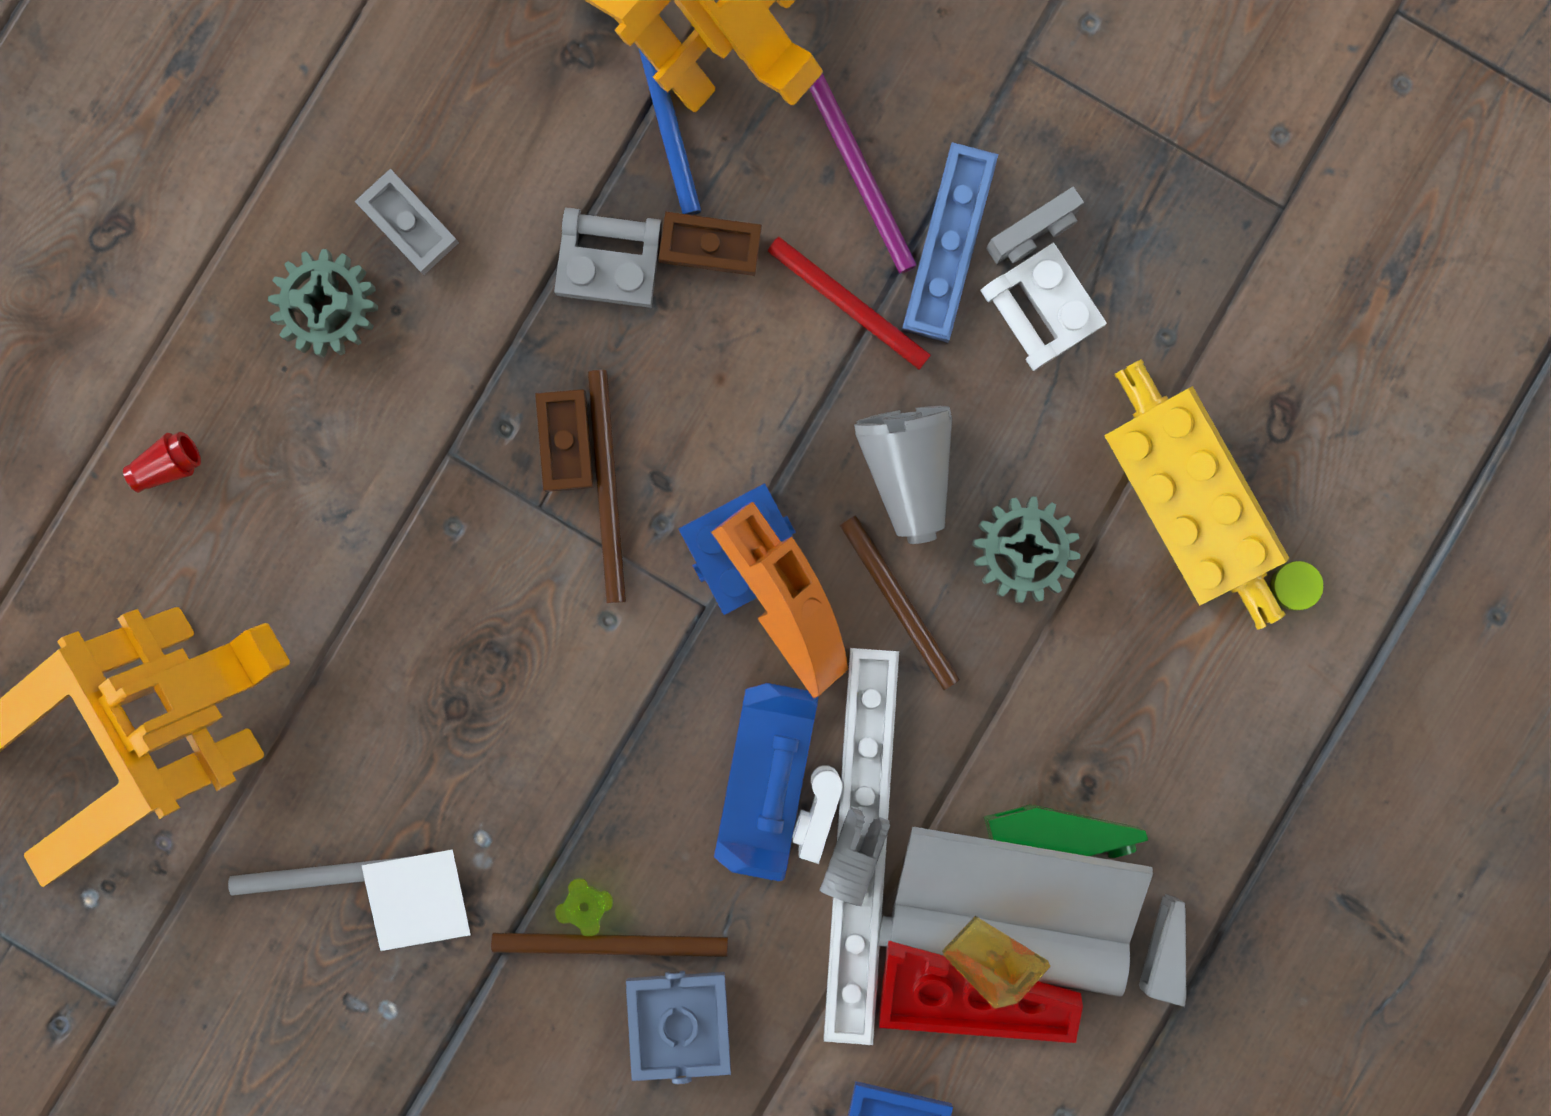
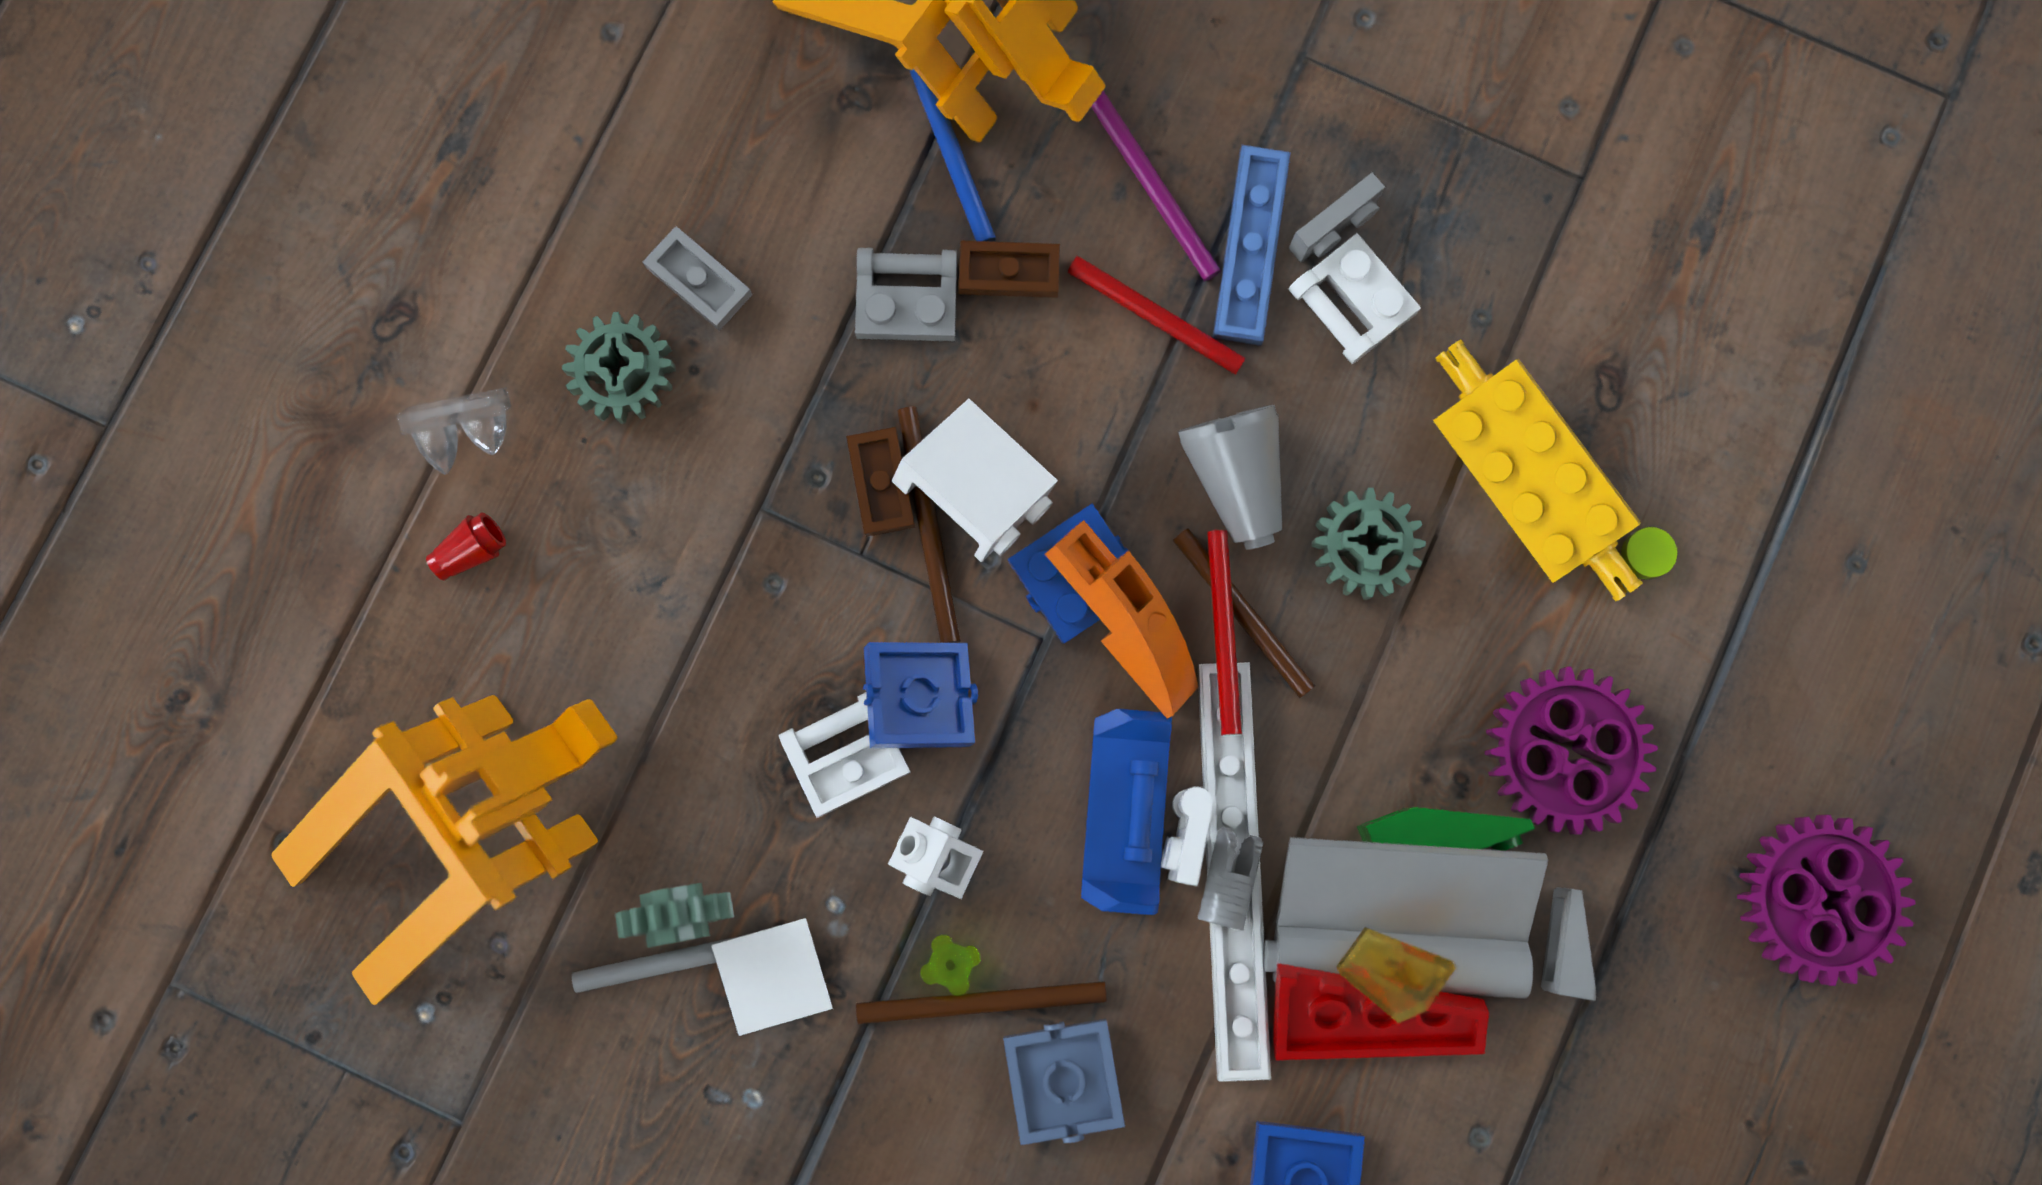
camera: 10 degrees left, 5 degrees down
(142, 341) = (435, 427): none -> clear tile
(328, 836) = (674, 915): none -> sand green gear
(508, 714) = (845, 772): none -> white plate
(579, 651) = (919, 695): none -> blue plate
(579, 806) = (935, 857): none -> white brick
(657, 449) = (978, 478): none -> white panel
(877, 621) = (1224, 632): none -> red bar
(1217, 731) = (1588, 710): none -> magenta gear
(1456, 915) = (1862, 875): none -> magenta gear

